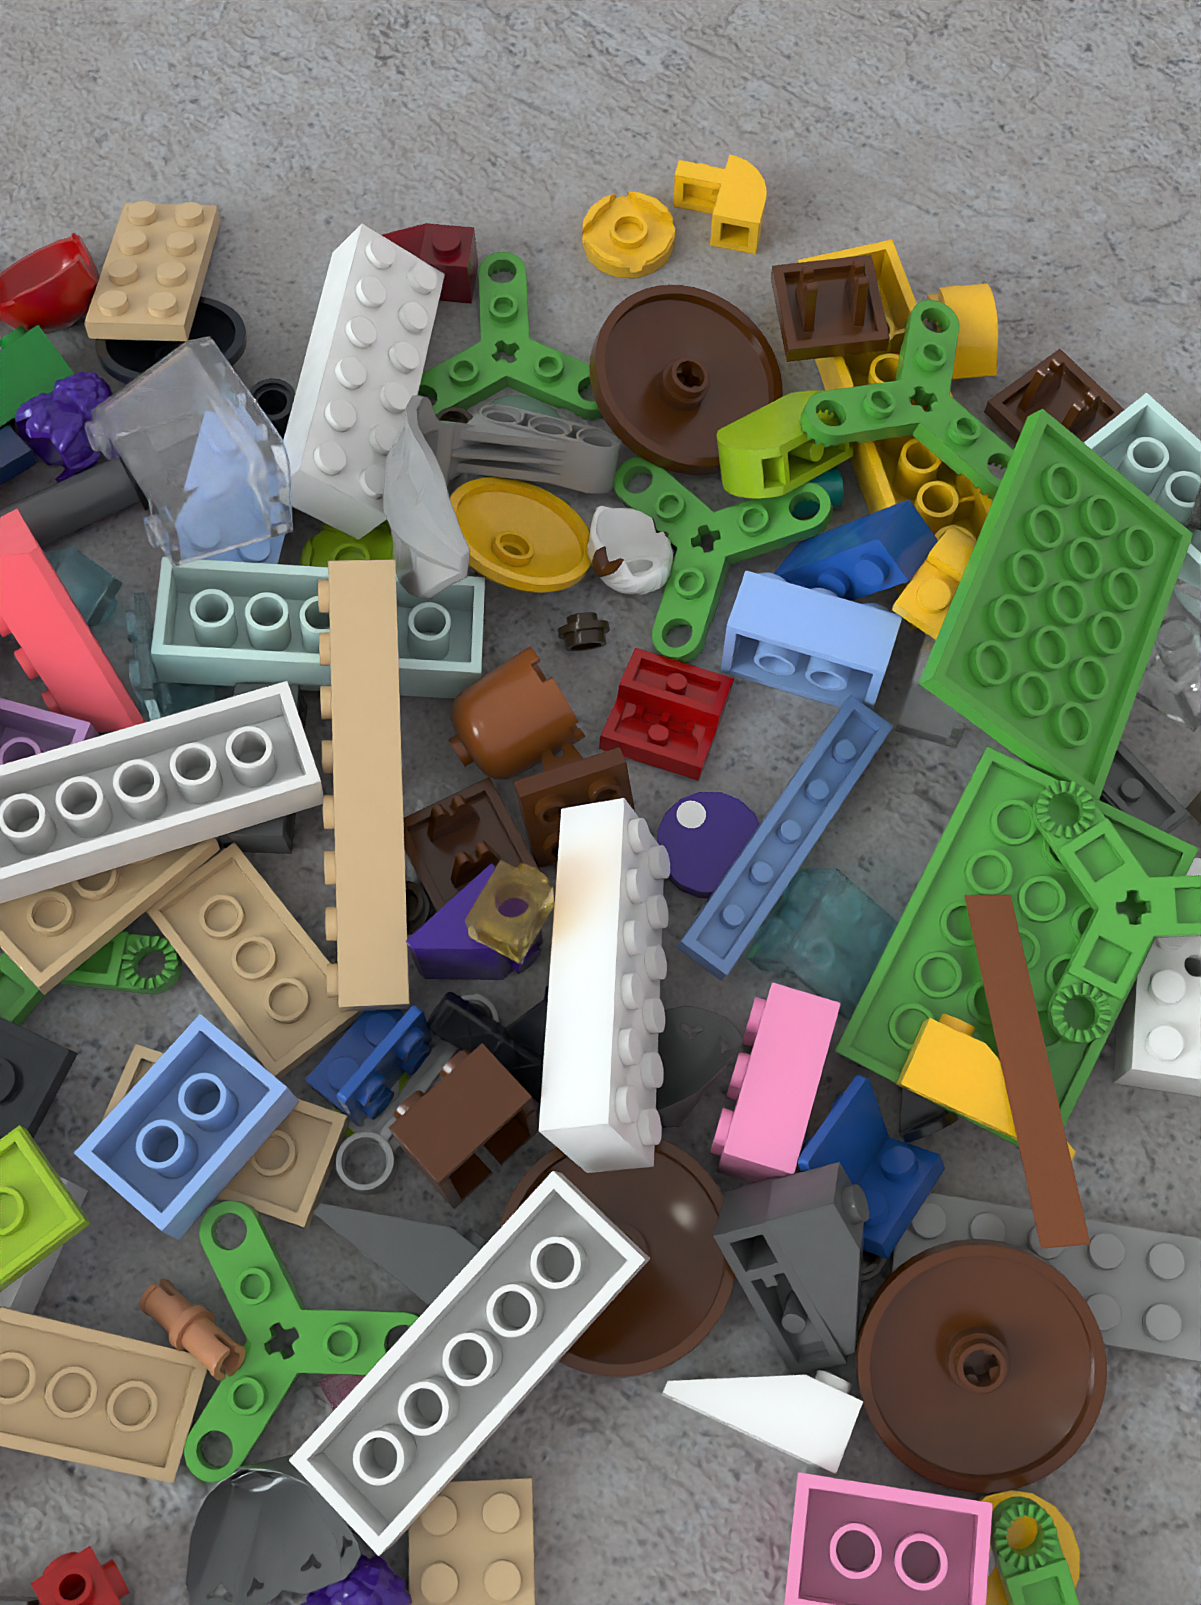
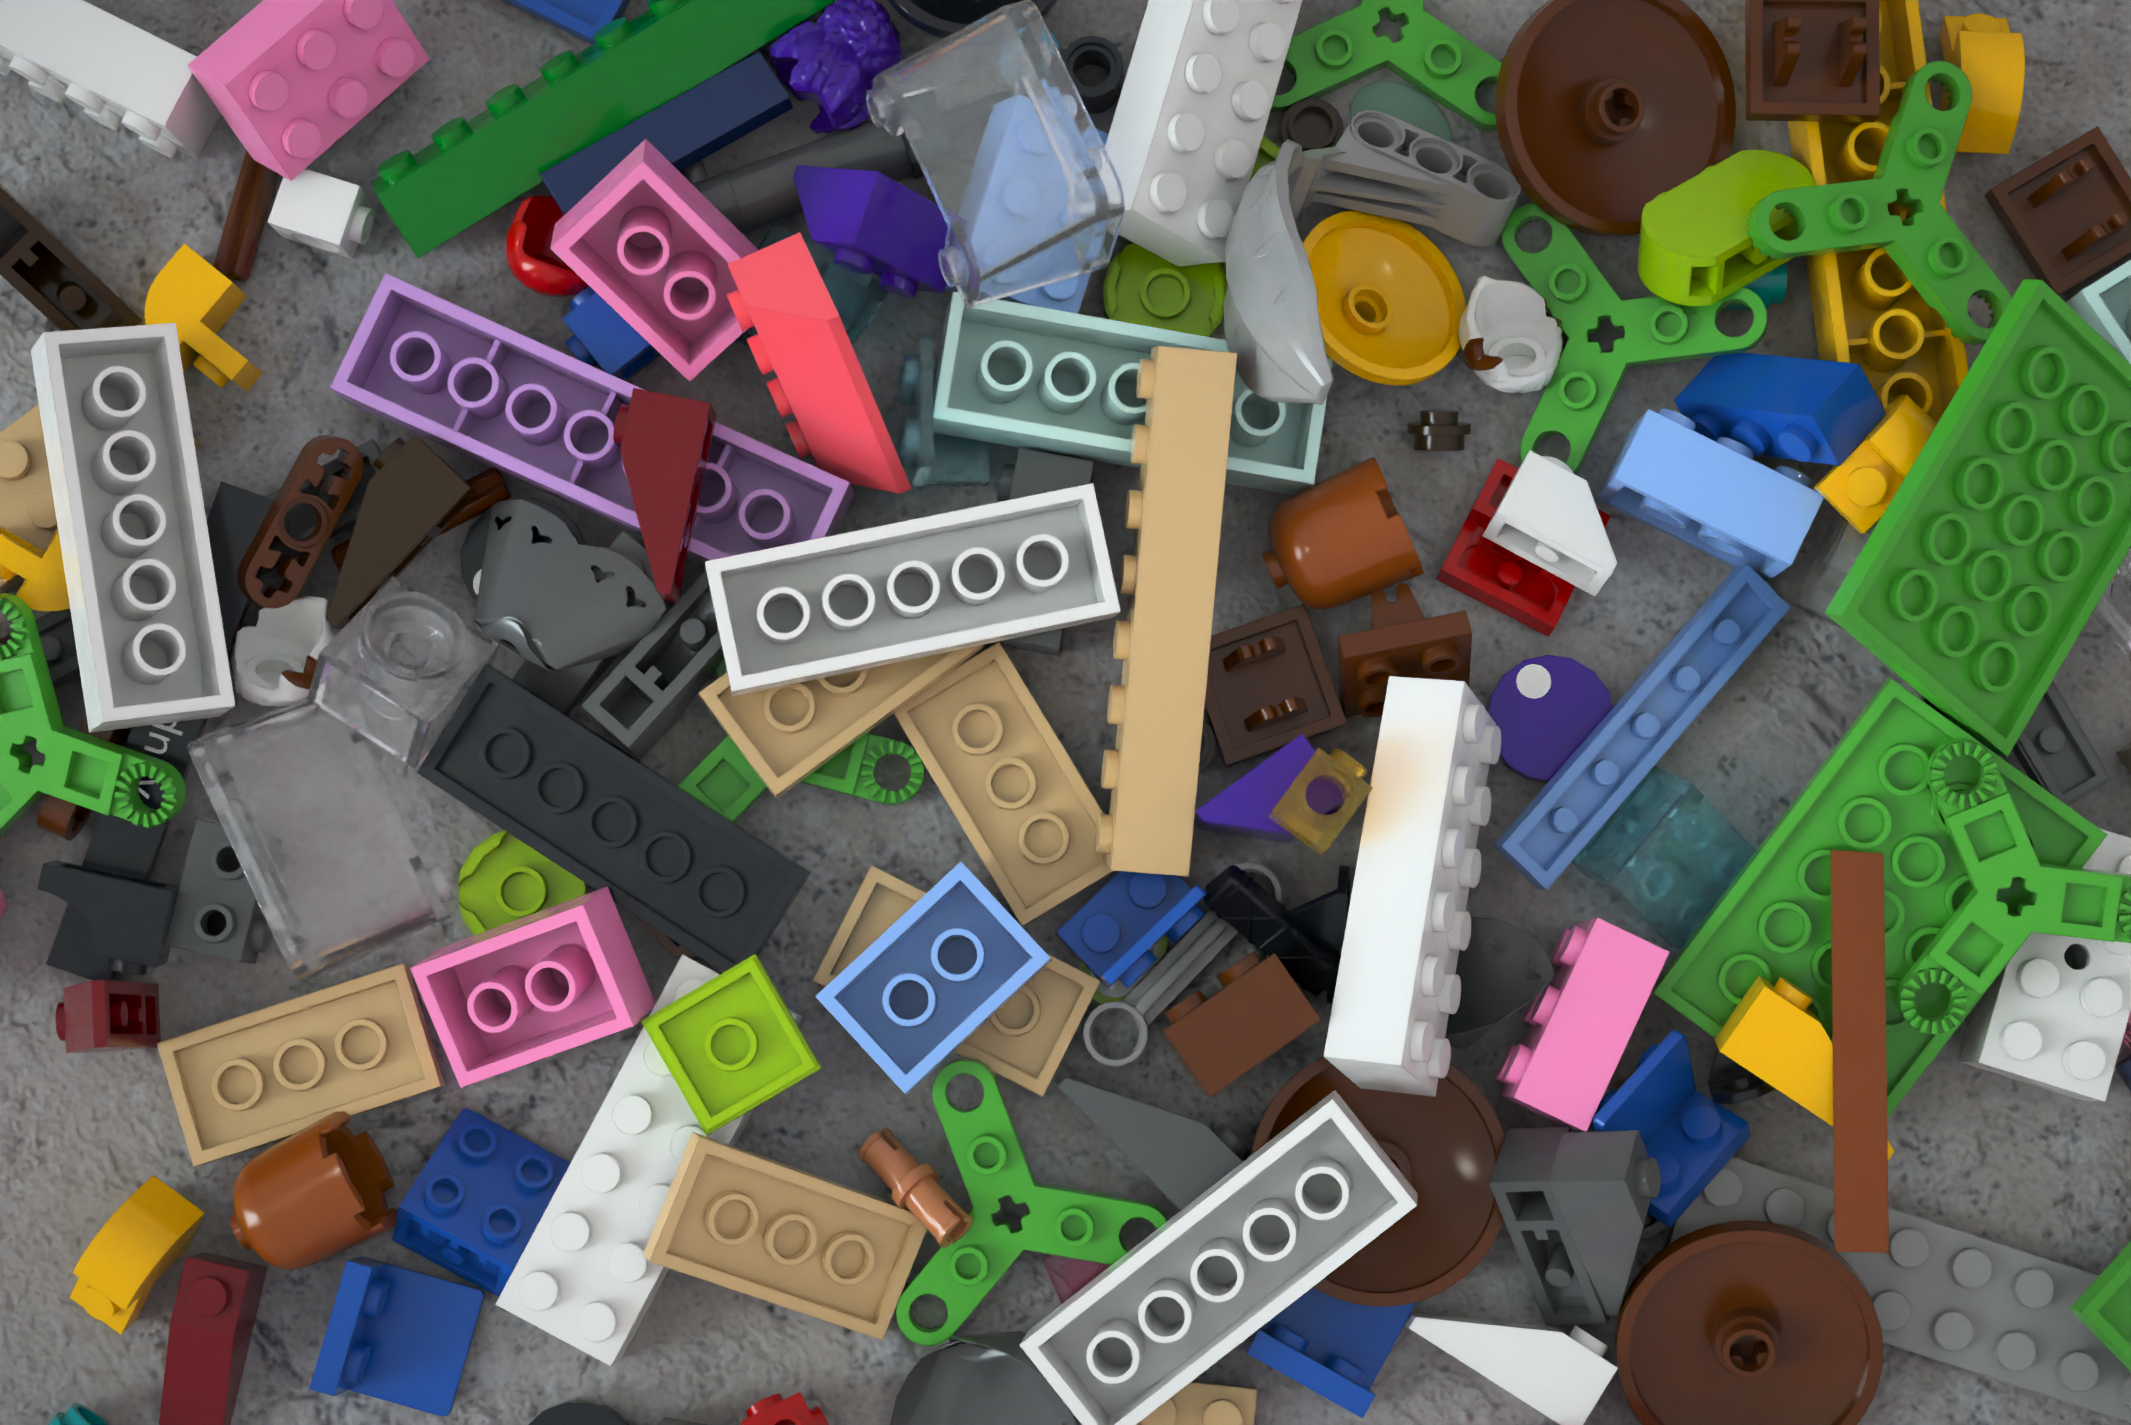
camera: 10 degrees right, 15 degrees up
(99, 521) = (874, 226): none -> dark purple slope
(591, 1419) = (1330, 1345): none -> blue bracket
(685, 681) = (1554, 523): none -> white slope

